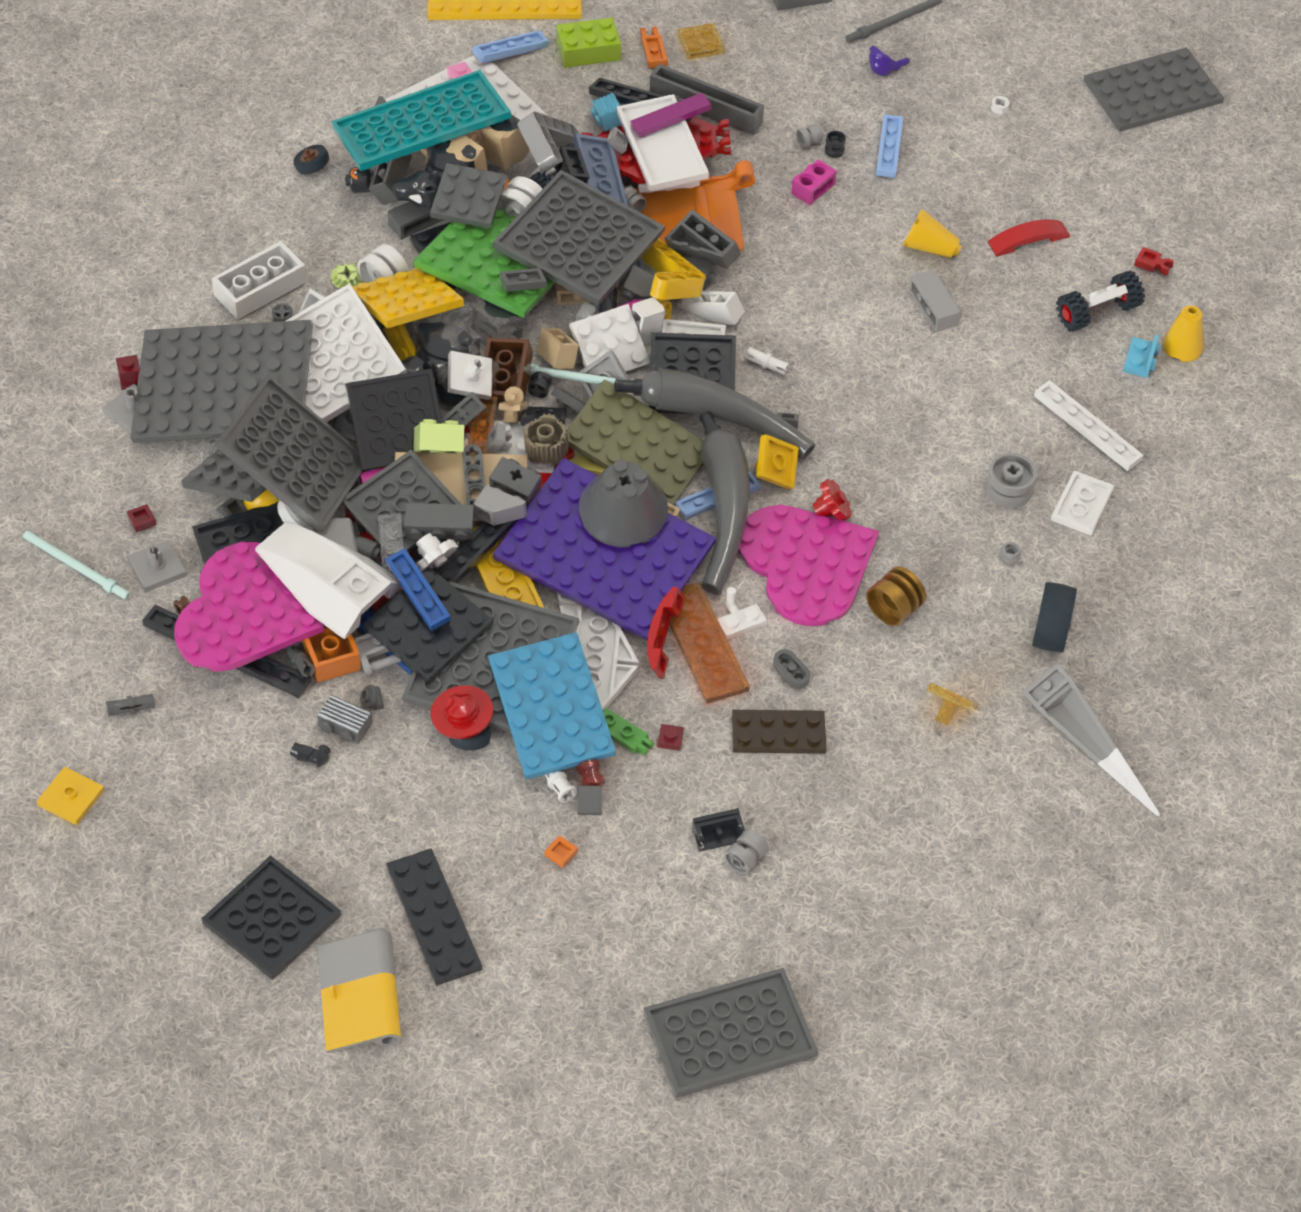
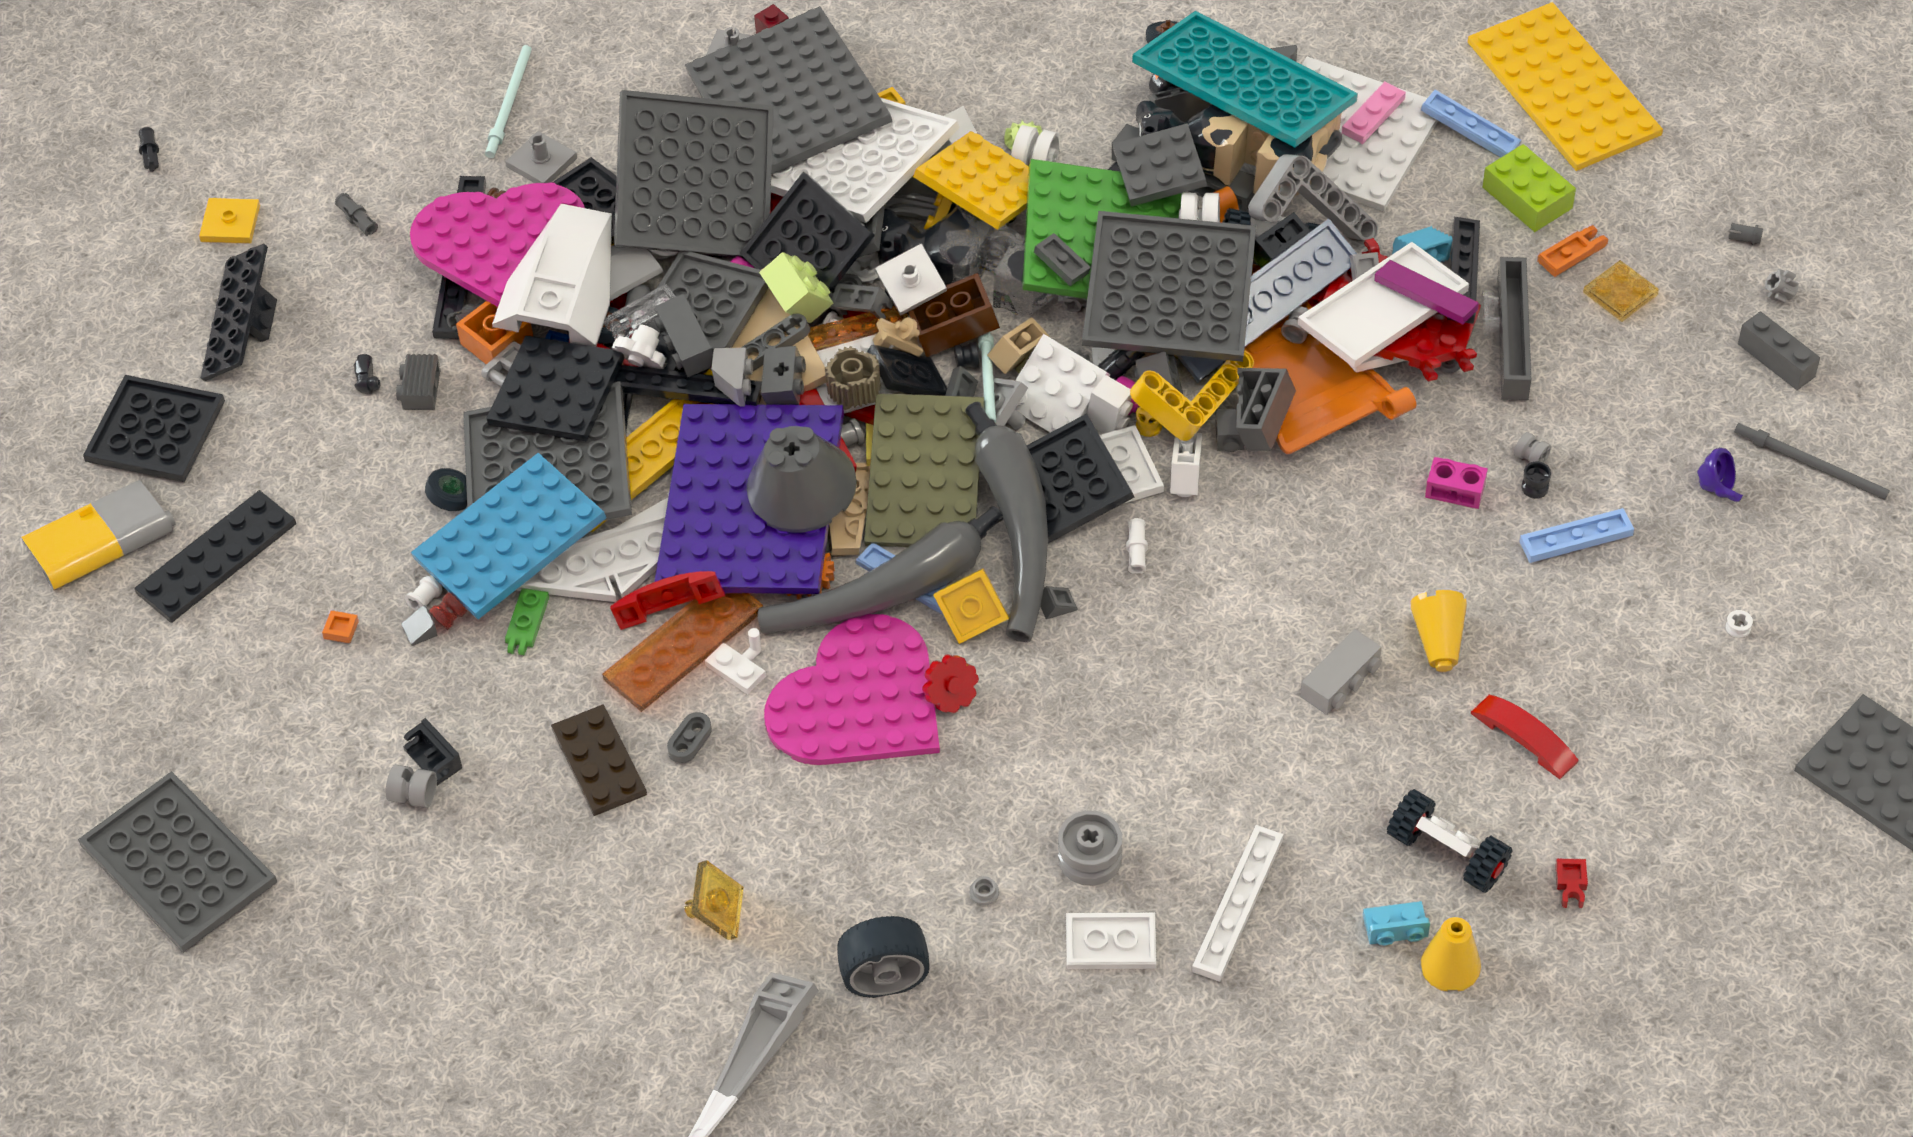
camera: 70 degrees right, 0 degrees up
(141, 518) = (592, 120): dark red plate -> none
(185, 819) = (240, 310): none -> black bracket
(259, 280) = (960, 66): white brick -> none
(281, 312) = (929, 103): dark grey wheel -> none
(372, 697) = (463, 394): dark grey plate -> none
(418, 589) = (577, 352): blue plate -> none
(462, 712) = (463, 465): red hat -> none
(498, 439) = (837, 339): light grey tile -> none
(670, 737) = (541, 665): dark red plate -> none
(896, 596) = (833, 791): pearl gold wheel -> none

